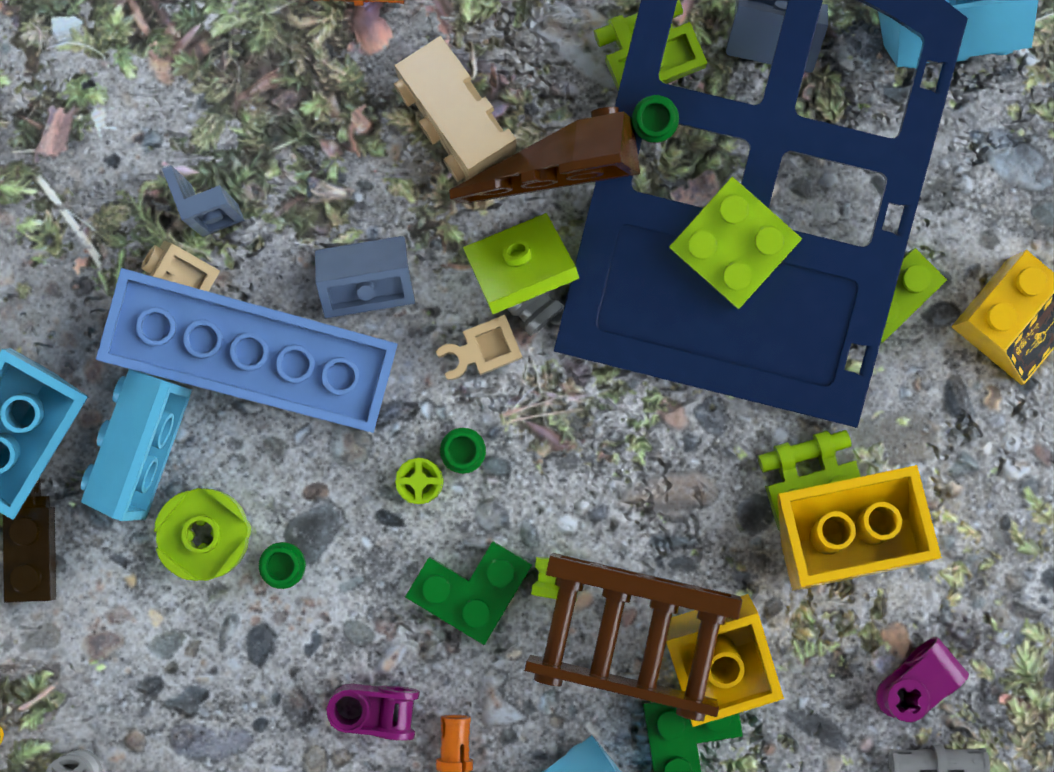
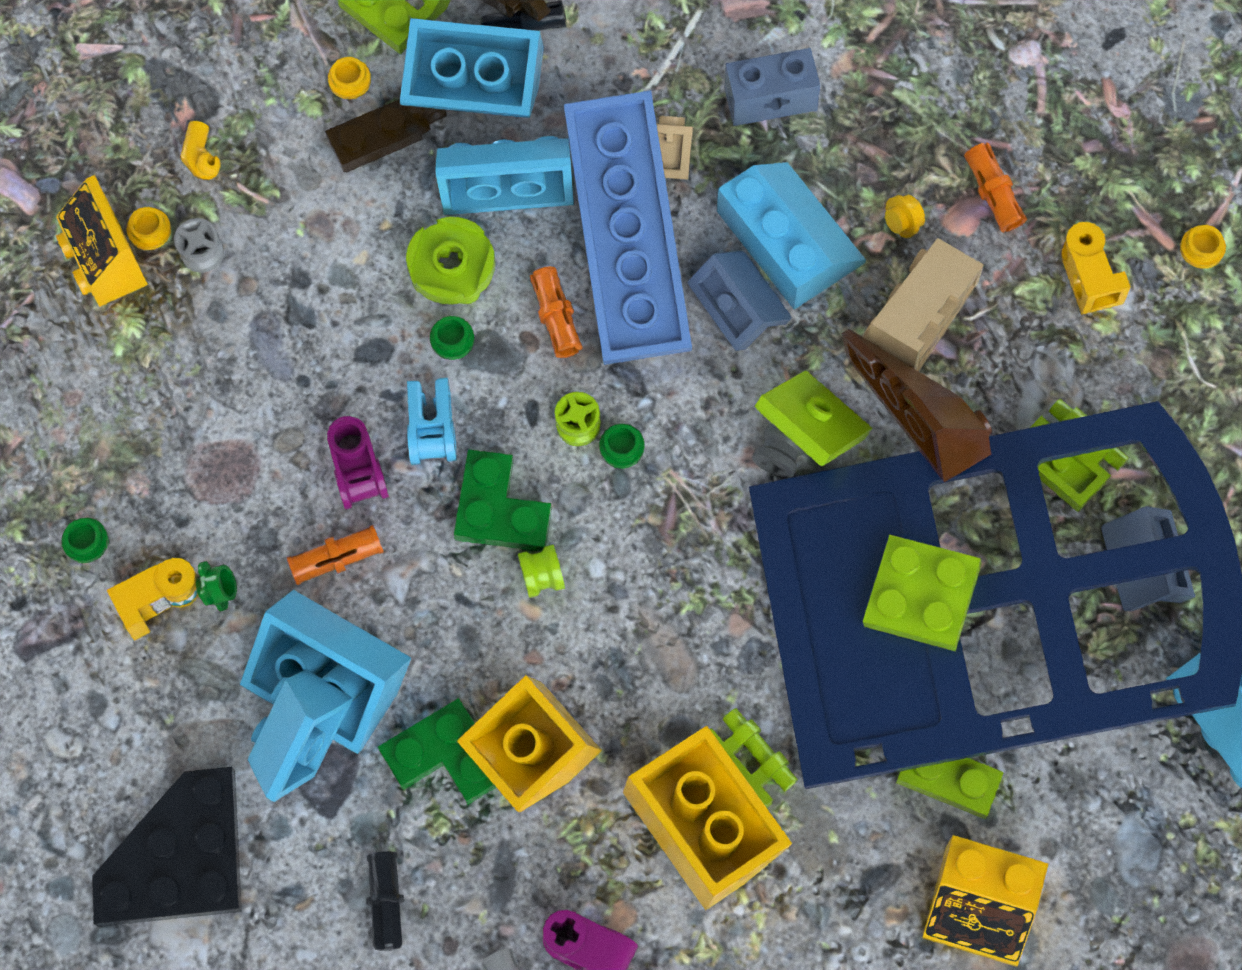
camera: 75 degrees right, 15 degrees down
(158, 139) = (772, 86): none -> sand blue brick
(203, 211) = (734, 133): sand blue panel -> none
(300, 455) = (555, 312): none -> orange pin
(315, 199) = (787, 231): none -> medium azure slope
(350, 84) = (904, 215): none -> yellow plate
(375, 616) = (432, 437): none -> medium azure piece
(487, 346) = (723, 427): tan plate -> none
(655, 119) = (999, 470): green plate -> none
(665, 599) = (562, 654): reddish brown fence -> none

